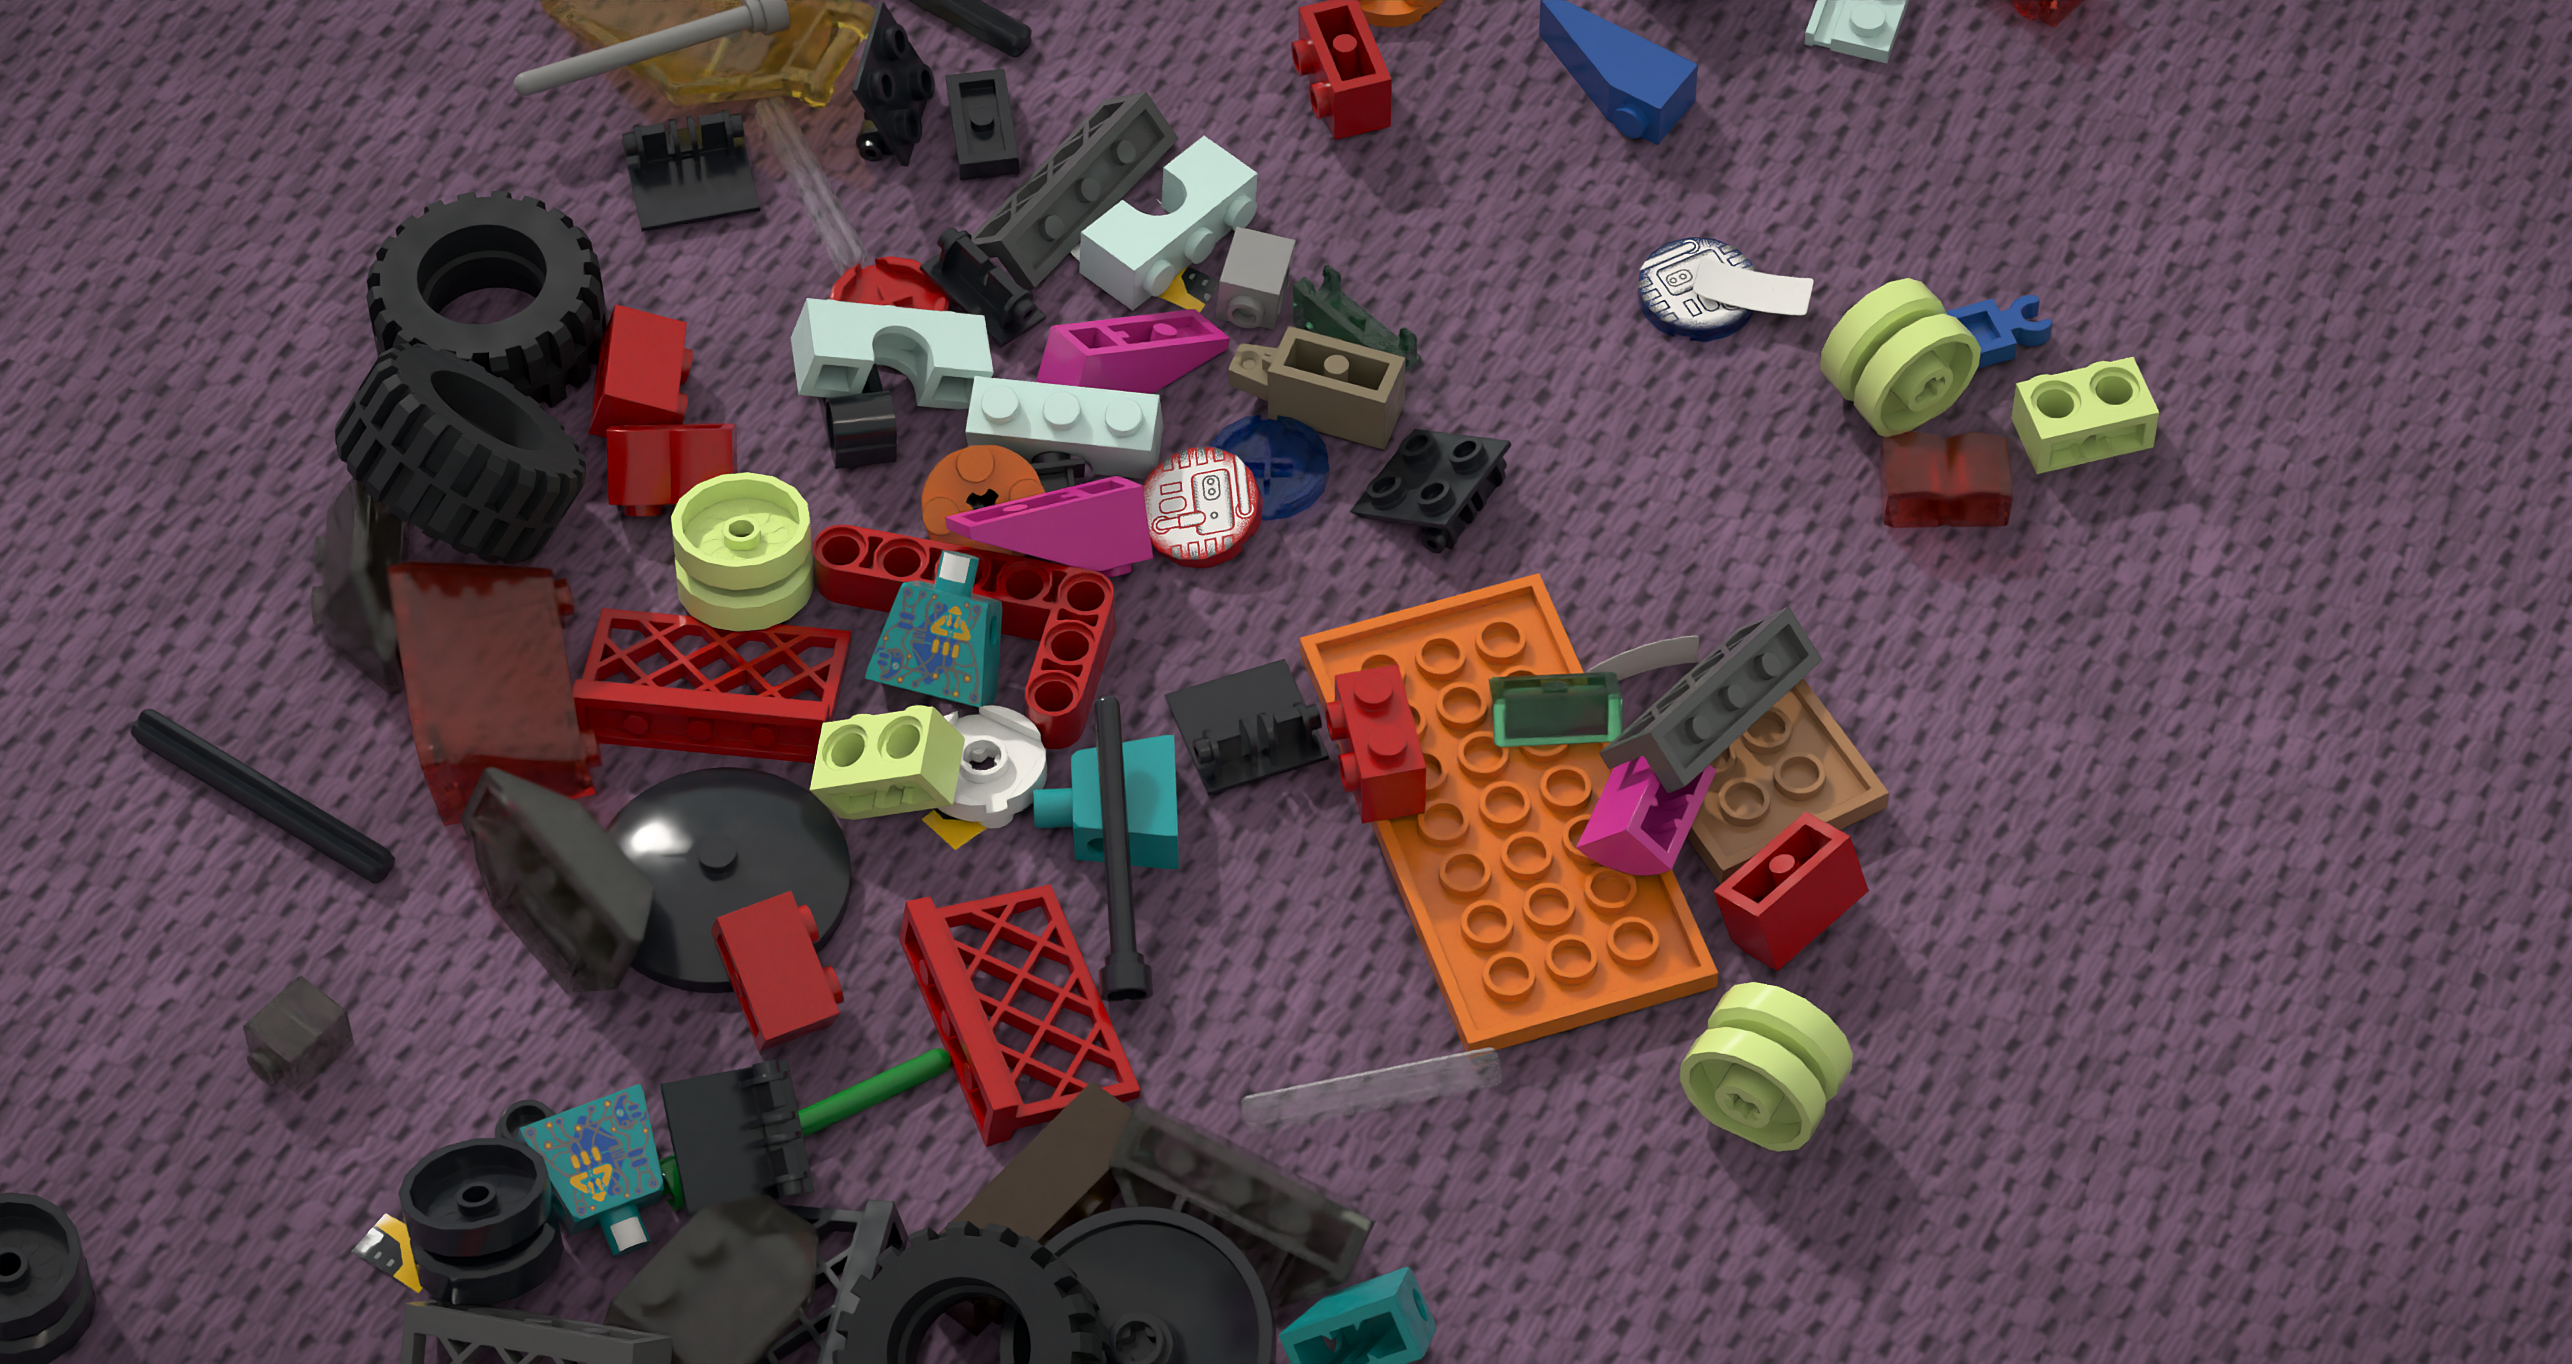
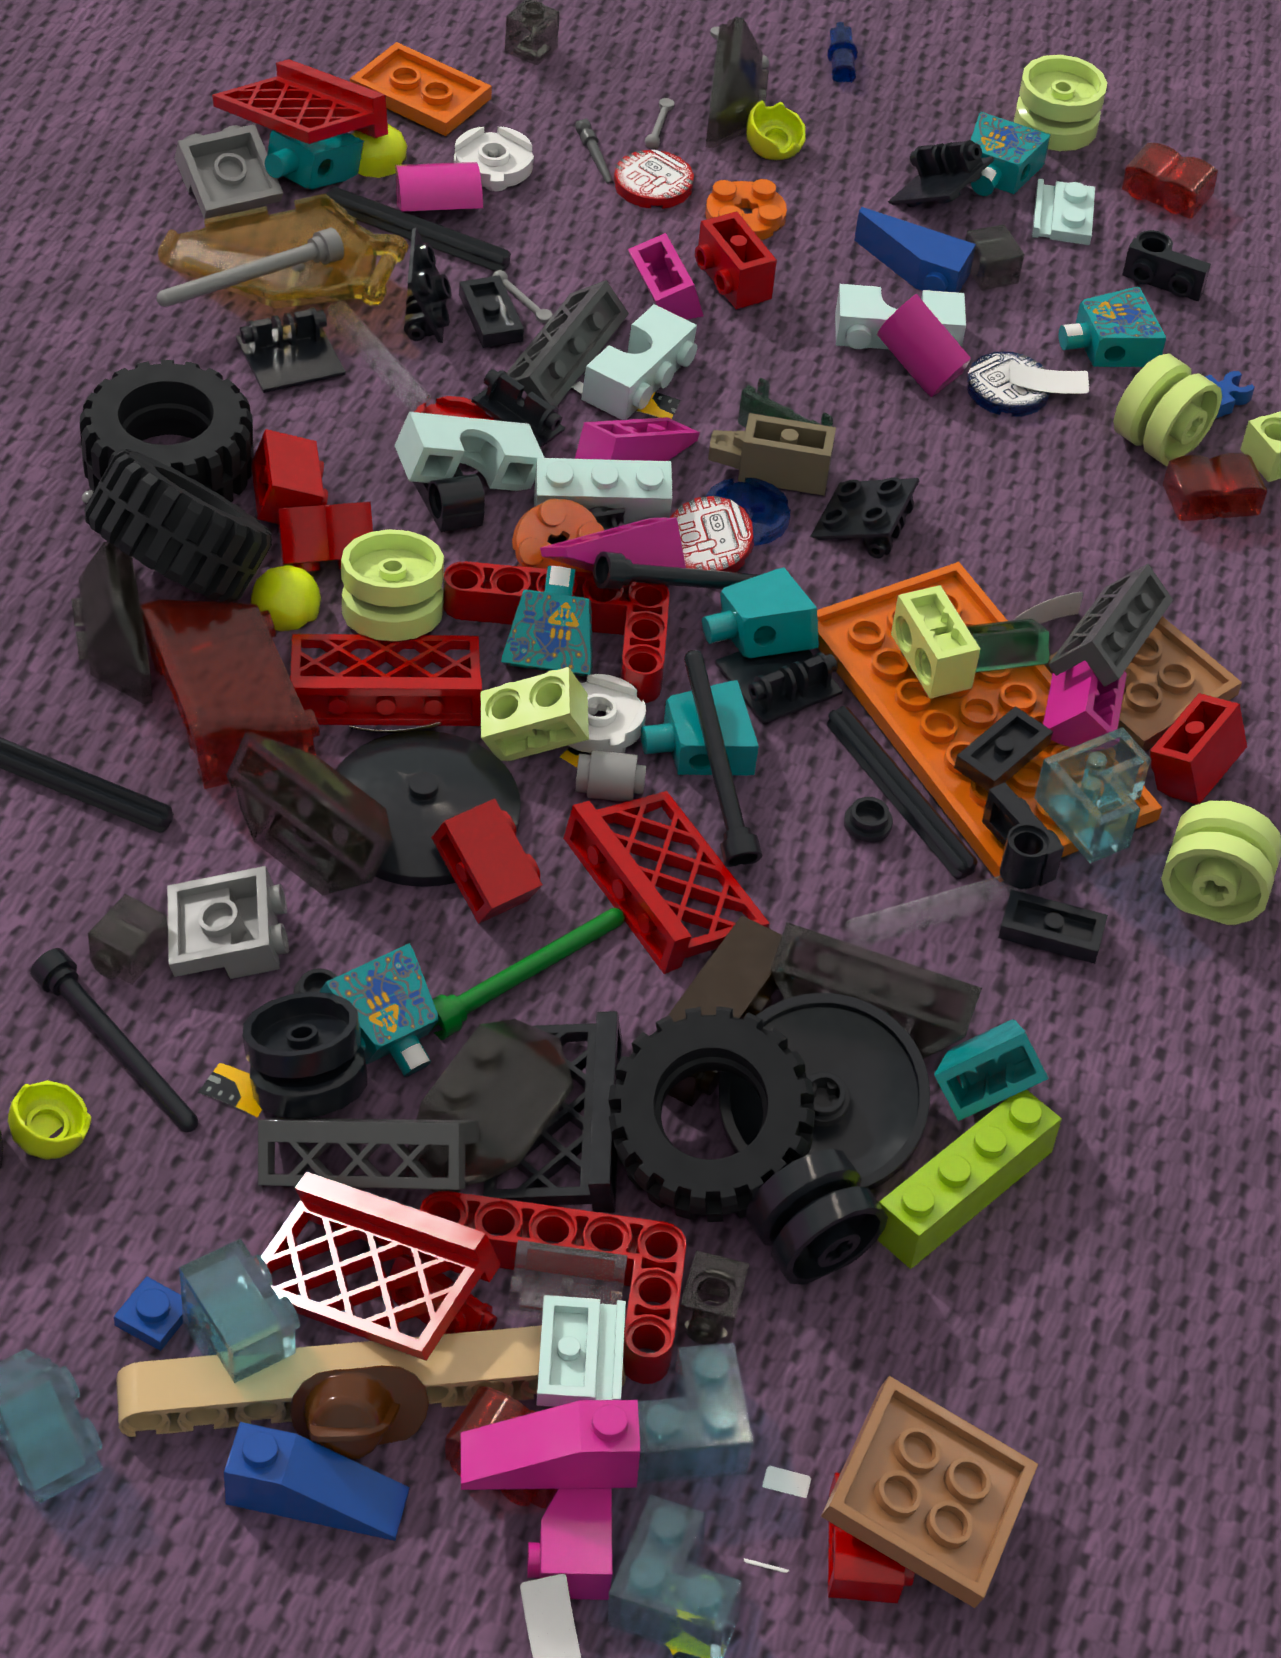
camera: 15 degrees left, 5 degrees down
(143, 1262) = (40, 1112): none -> neon yellow hair
(203, 1073) = (57, 973): none -> black piece
(426, 1026) = (227, 924): none -> light grey plate
(604, 555) = (288, 595): none -> neon yellow hair
(679, 762) = (394, 731): none -> sticker
(737, 1135) = (487, 976): black hinge -> none
(975, 858) = (610, 776): none -> light grey brick
(1036, 563) = (614, 571): none -> black piece
(1056, 130) = (542, 315): none -> light grey hinge
(1239, 90) = (666, 277): none -> dark pink brick
(1240, 637) = (765, 616): none -> teal torso
(1255, 279) = (709, 393): light grey brick -> none
(1312, 952) = (868, 819): none -> black plate
(1370, 915) = (902, 793): none -> black axle
(1378, 743) = (888, 673): red brick -> none
(1454, 703) = (935, 641): none -> yellowish green brick
(1498, 1006) = (1030, 849): none -> black plate
(1512, 870) = (1003, 749): none -> black plate
(1520, 1132) = (1053, 926): none -> black plate
(1573, 230) = (923, 346): none -> dark pink brick
(1604, 193) = (863, 312): none -> light aqua arch
(1606, 941) = (1094, 791): none -> clear light blue brick
(1728, 81) = (996, 257): none -> clear smoke brick
(1873, 215) = (1115, 330): none -> teal torso
(1961, 104) = (1155, 264): none -> black plate

